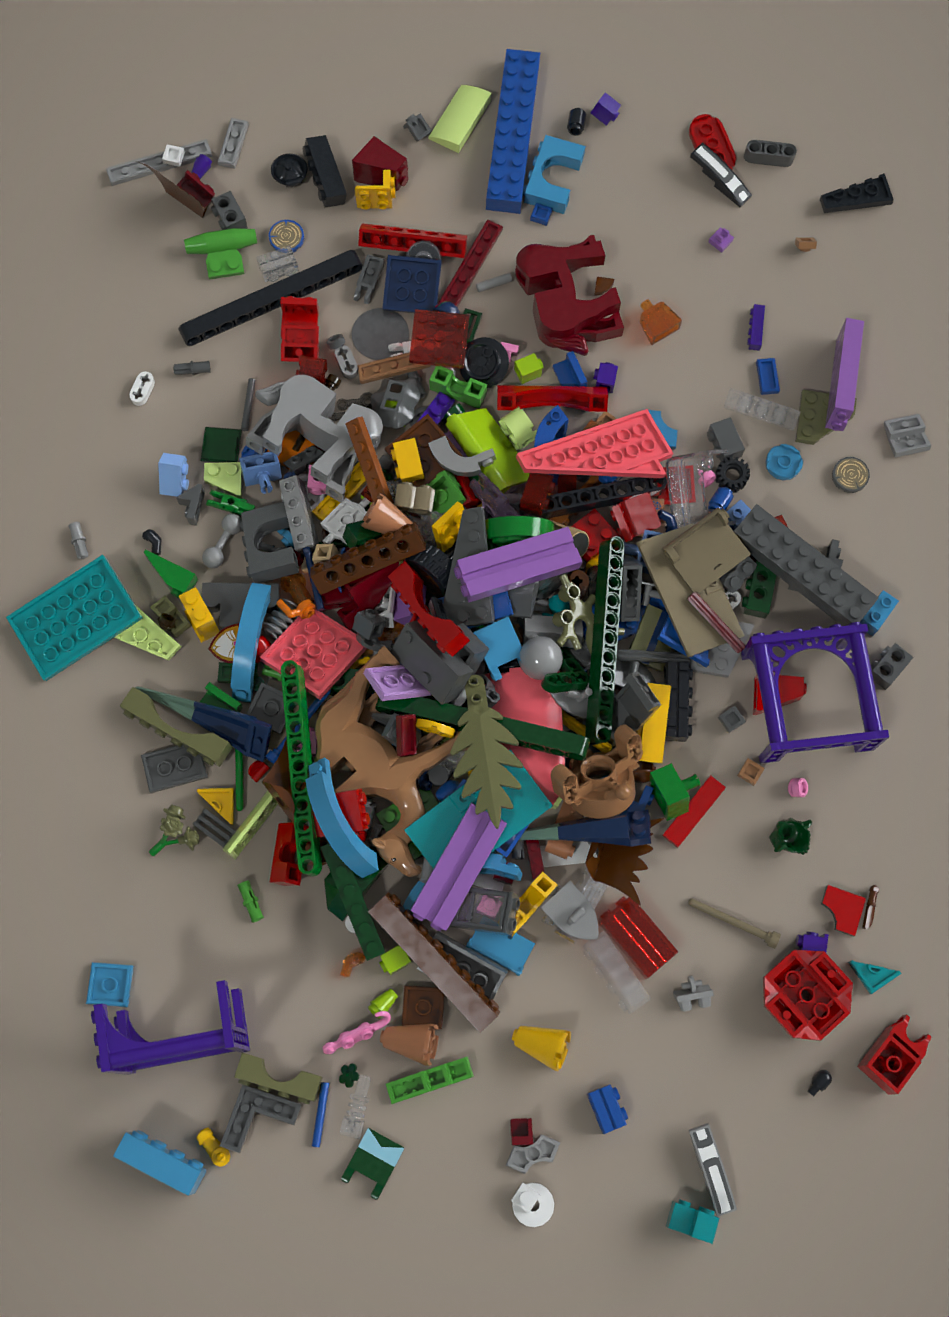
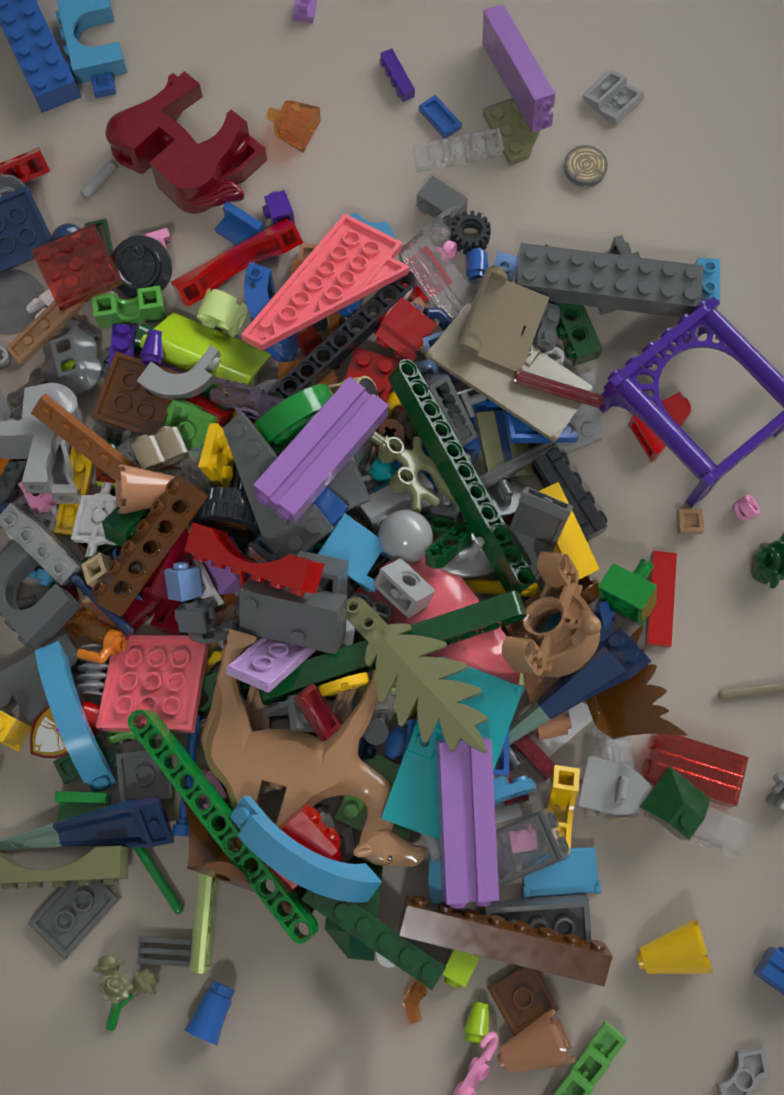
camera: 30 degrees left, 0 degrees up
(219, 884) = (211, 1013): none -> blue plant
(221, 800) = (152, 915): yellow tile -> none
(250, 901) = (258, 1007): bright green pin -> none
(257, 770) = (173, 854): red plate -> none
(284, 869) = (271, 944): red arch -> none
(374, 596) = (183, 582): none -> medium blue brick
(408, 460) = (126, 412): yellow brick -> none
(452, 427) = (152, 348): none -> dark purple cone
(472, 263) = (62, 172): dark red tile -> none
(516, 690) = (404, 588): none -> light grey brick
(521, 1131) = (717, 1064): dark red panel -> none
(528, 368) = (192, 246): lime brick -> none
(536, 493) = (287, 365): clear red brick -> none
(603, 285) = (214, 120): reddish brown tile -> none
(606, 948) = (676, 804): none -> dark green slope
(731, 719) = (636, 480): dark grey plate -> none
(784, 462) = (512, 191): dark azure tile -> none
(891, 667) = (758, 330): dark grey brick -> none

